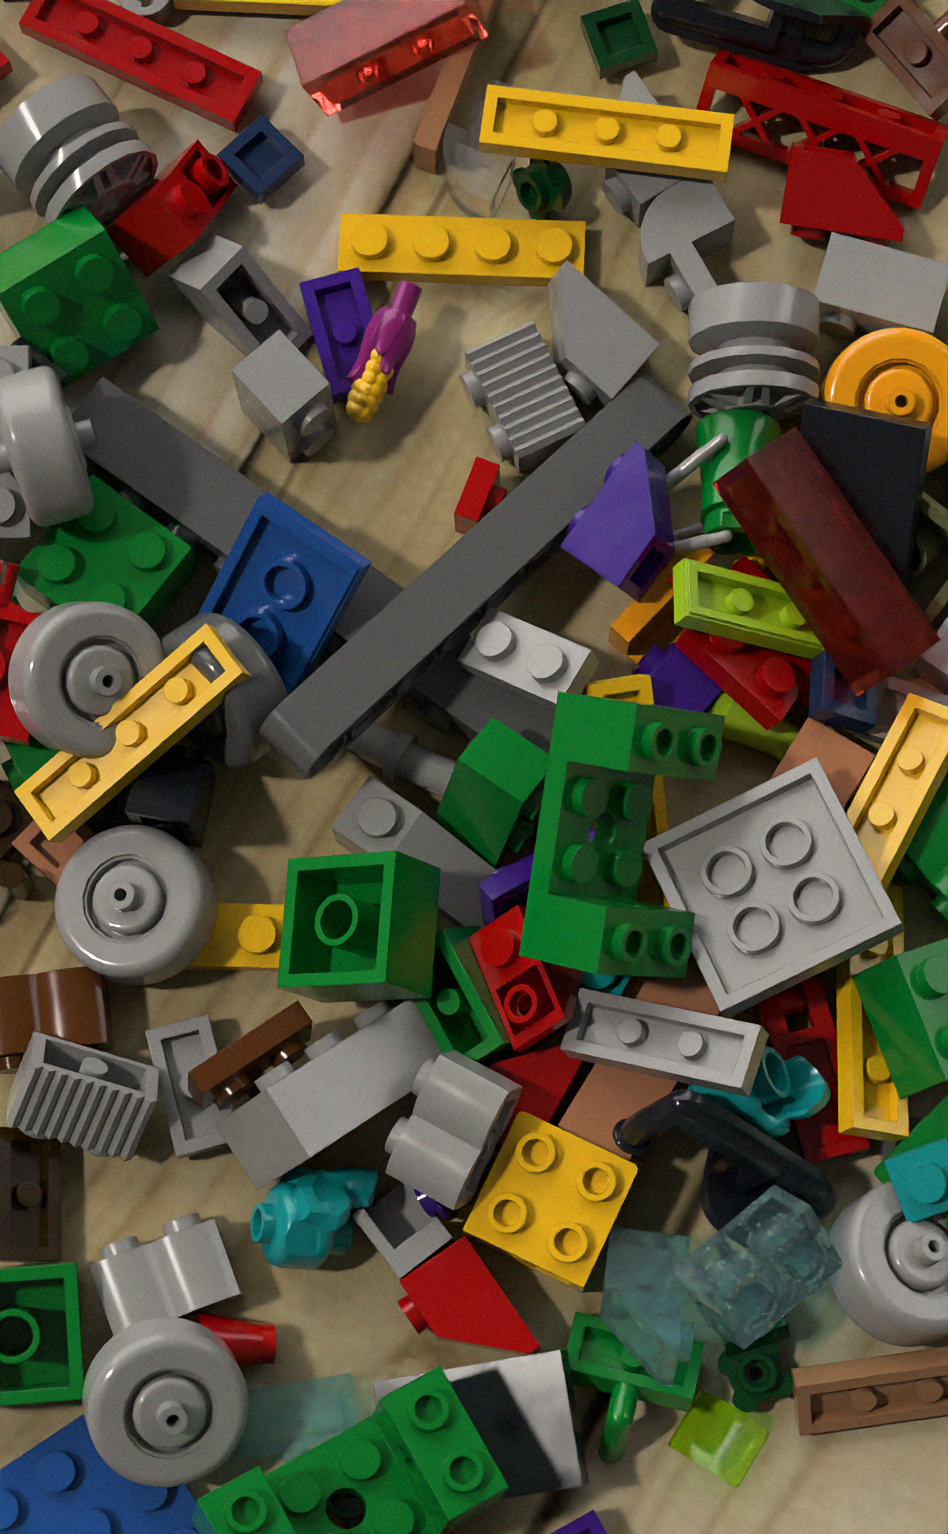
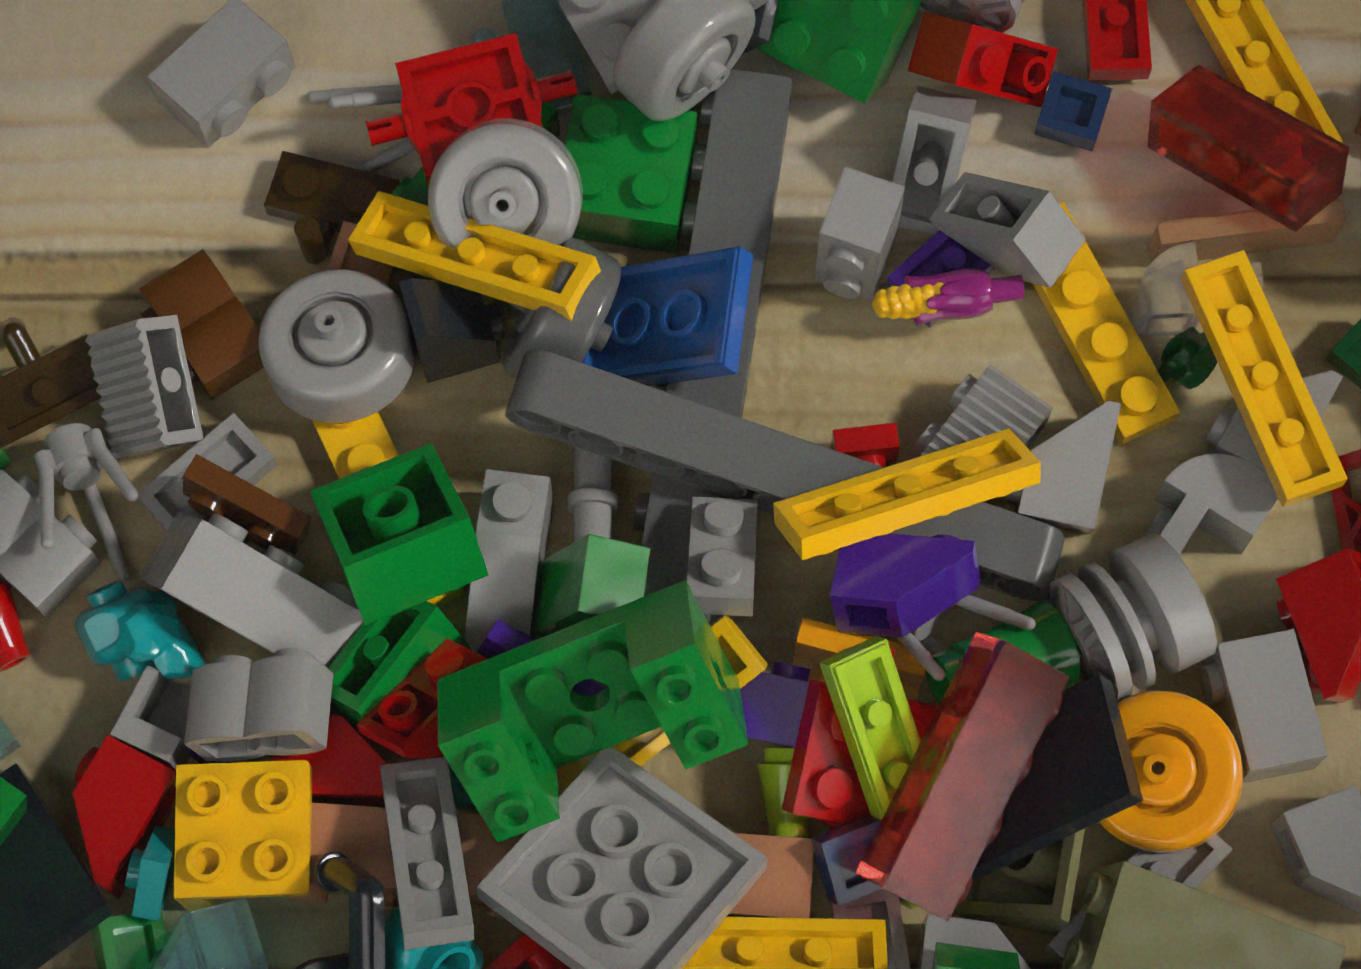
camera: 60 degrees right, 5 degrees down
(111, 1195) = (75, 458): none -> light grey plant
(350, 267) = (1010, 227): none -> light grey slope
(543, 1299) = (152, 874): none -> teal plate
(559, 476) = (906, 493): none -> yellow plate

